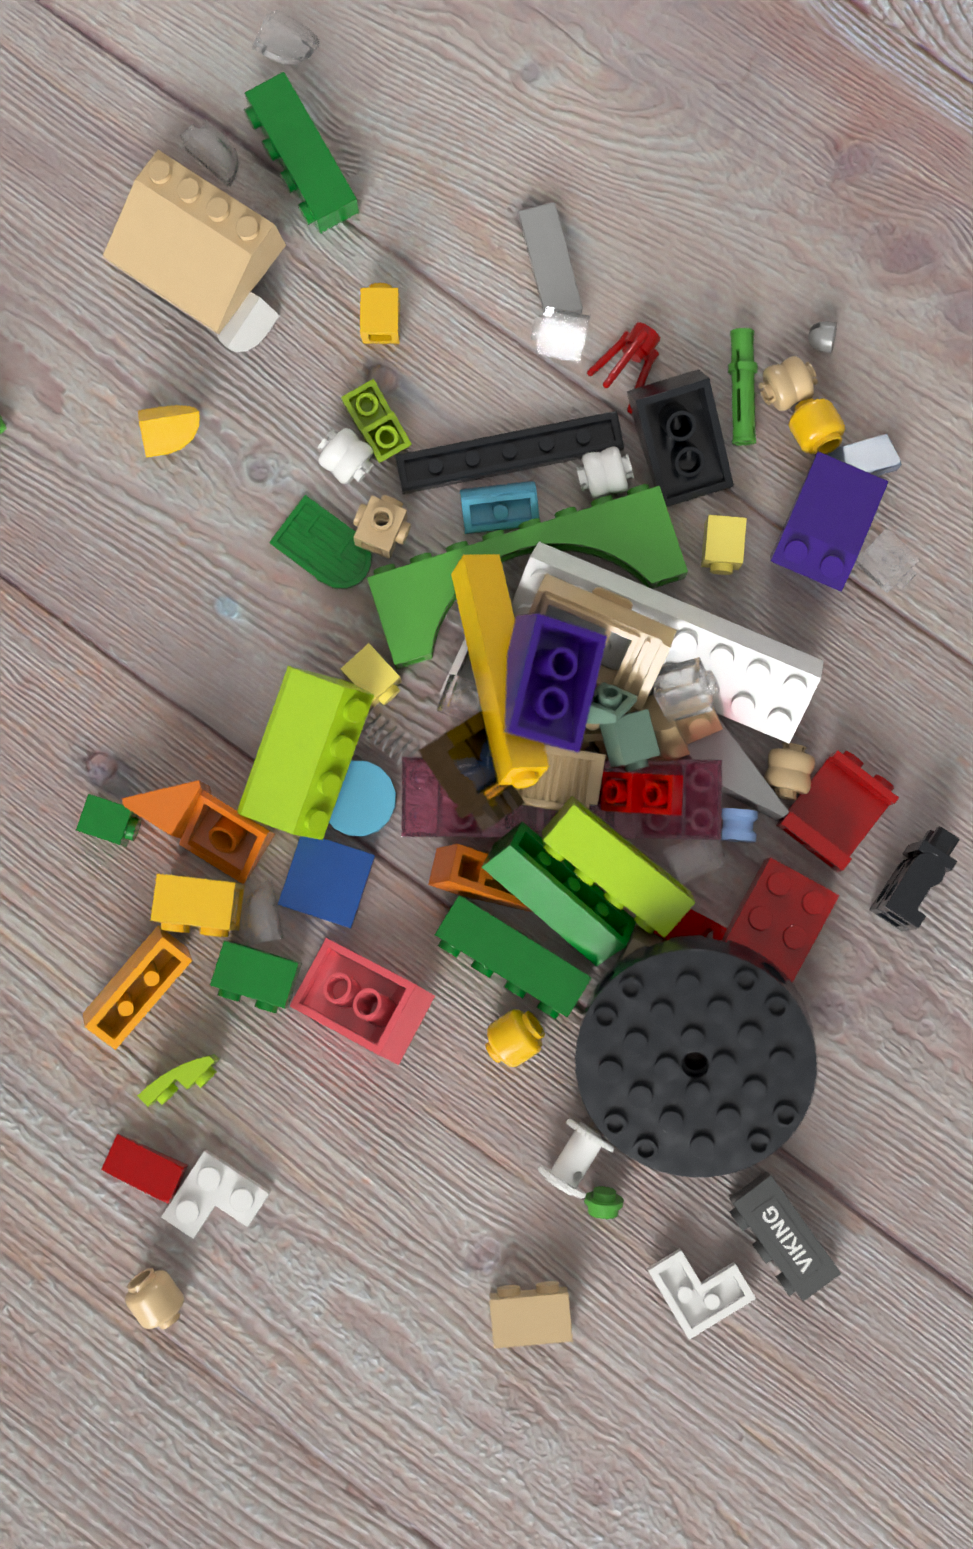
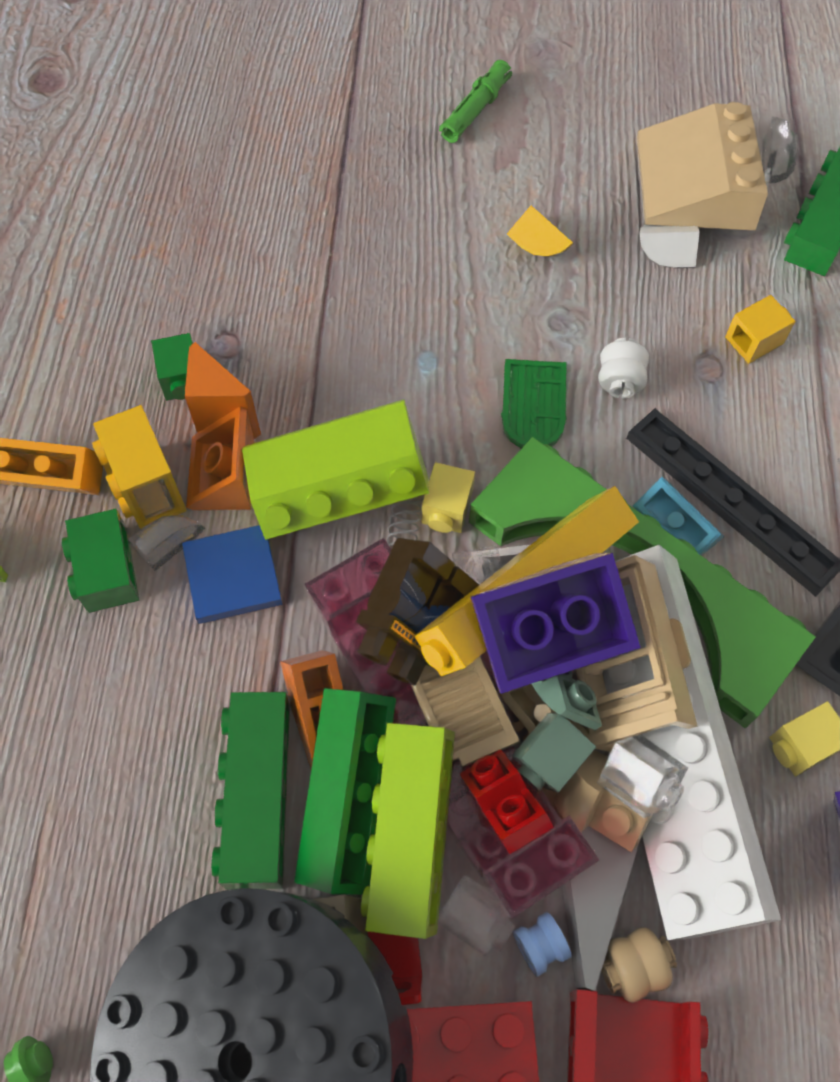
camera: 55 degrees right, 20 degrees down
(362, 1001) = (125, 674): coral slope -> none
(364, 800) = (321, 548): medium azure tile -> none
(376, 421) = (671, 378): lime slope -> none
(378, 538) = (586, 427): tan brick -> none
(514, 1038) = (169, 844): yellow head -> none
(575, 1158) = (59, 995): white hose -> none
(605, 472) = (785, 584): white piece -> none

